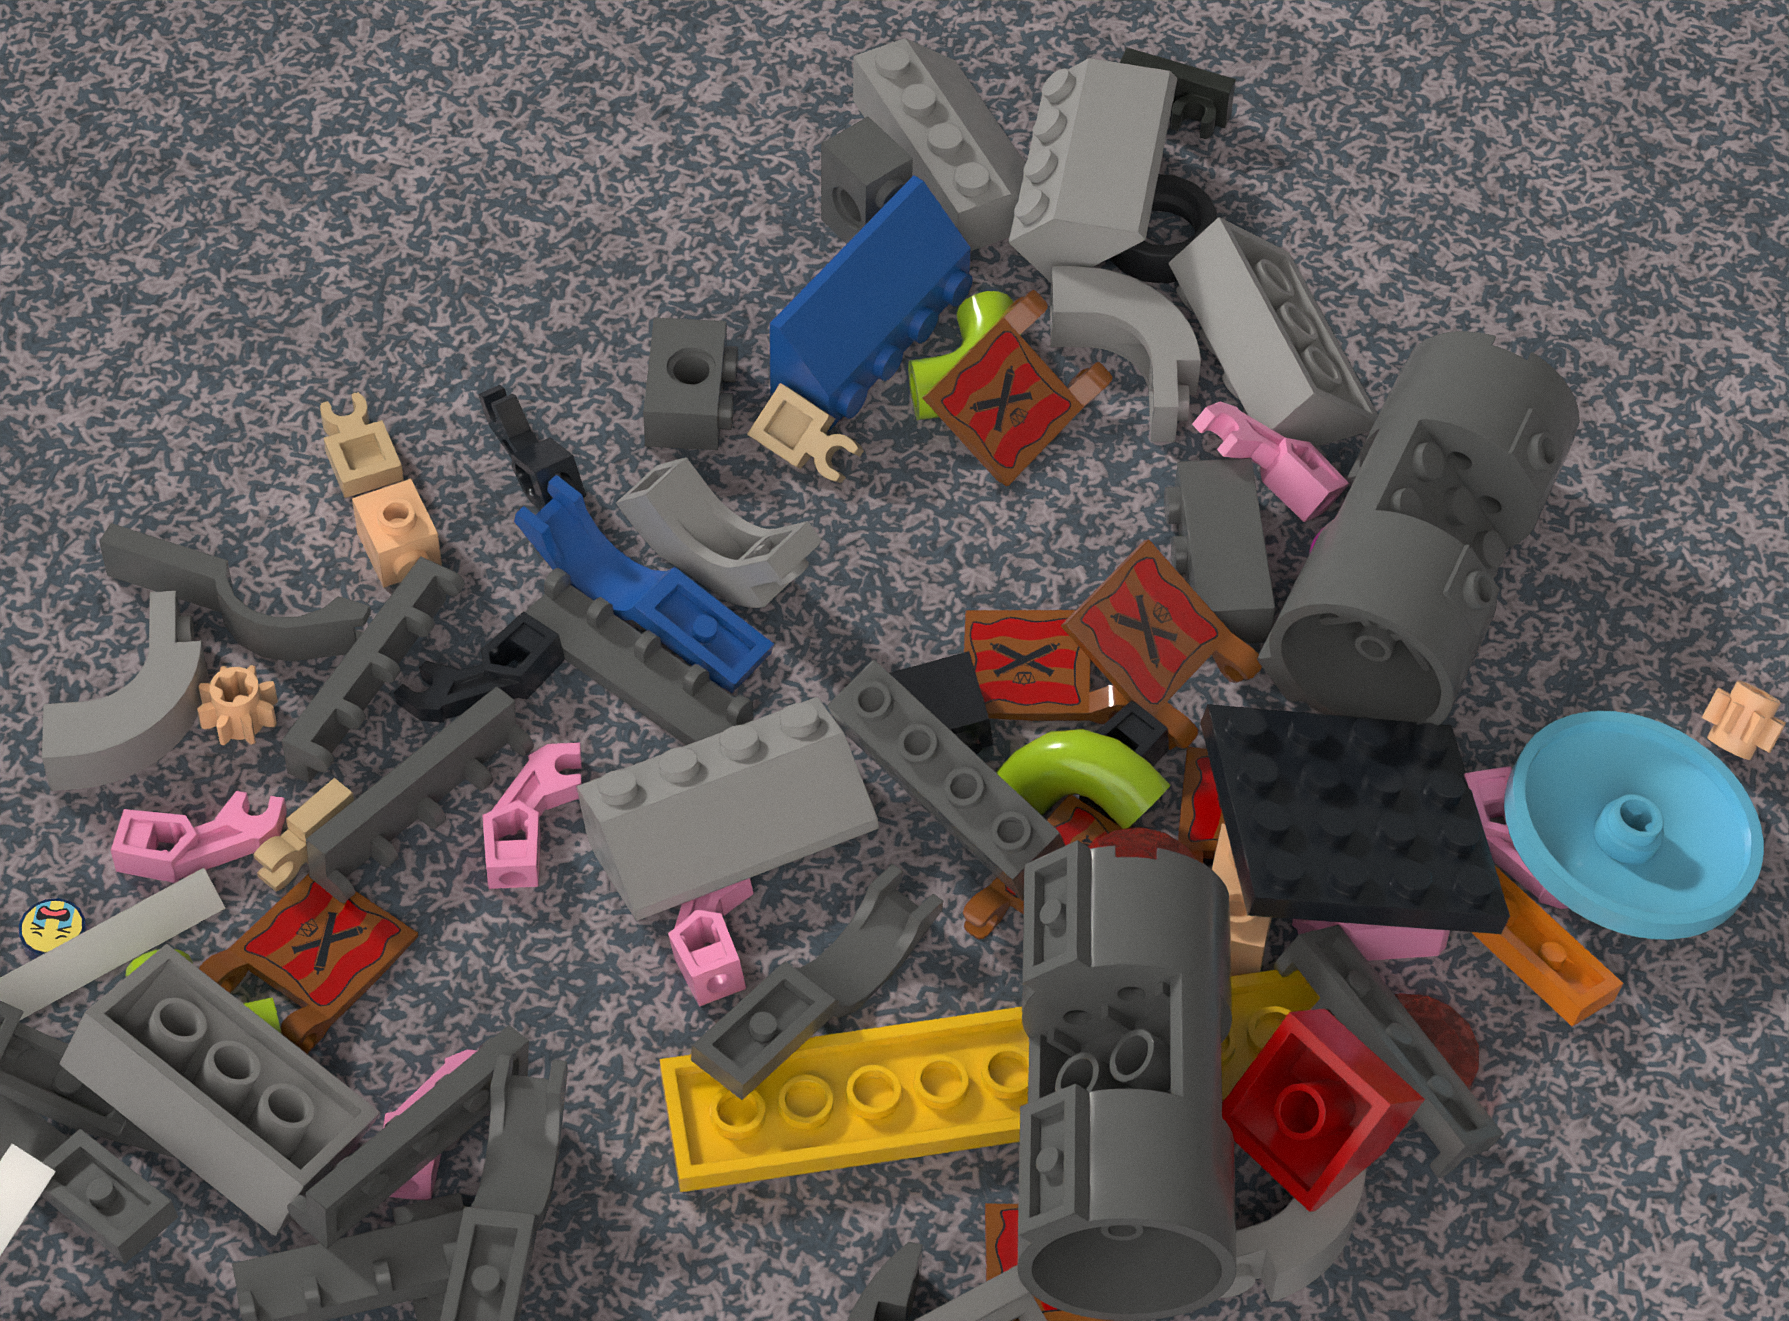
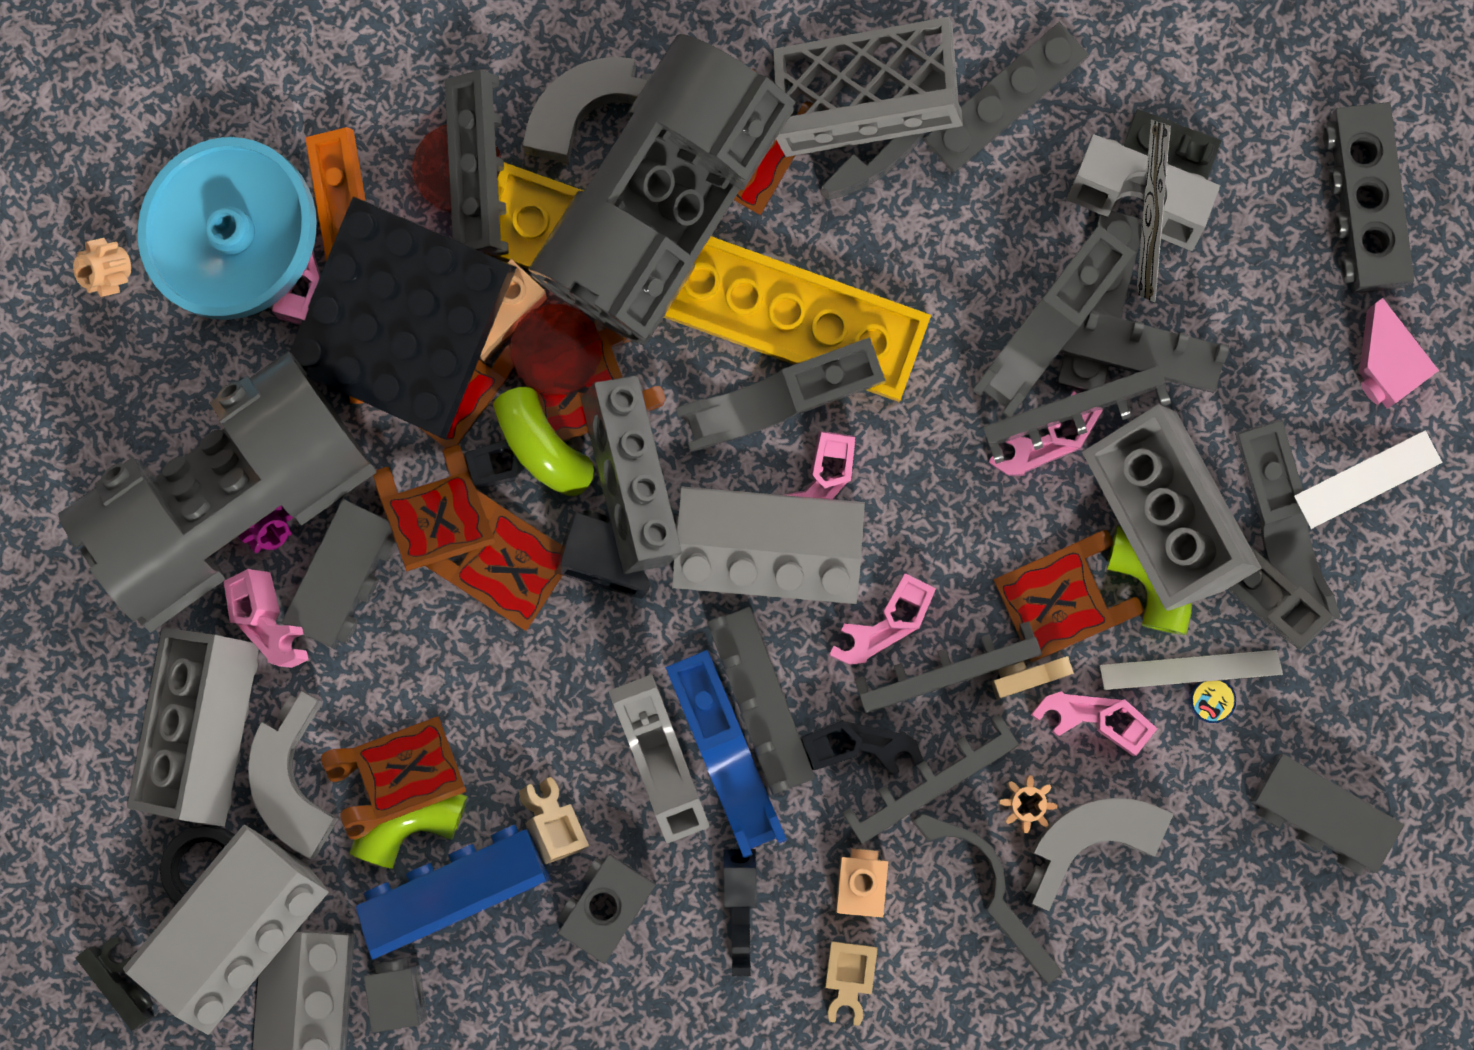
camera: 150 degrees left, 30 degrees up
(1317, 1107) = (550, 130): red slope -> none

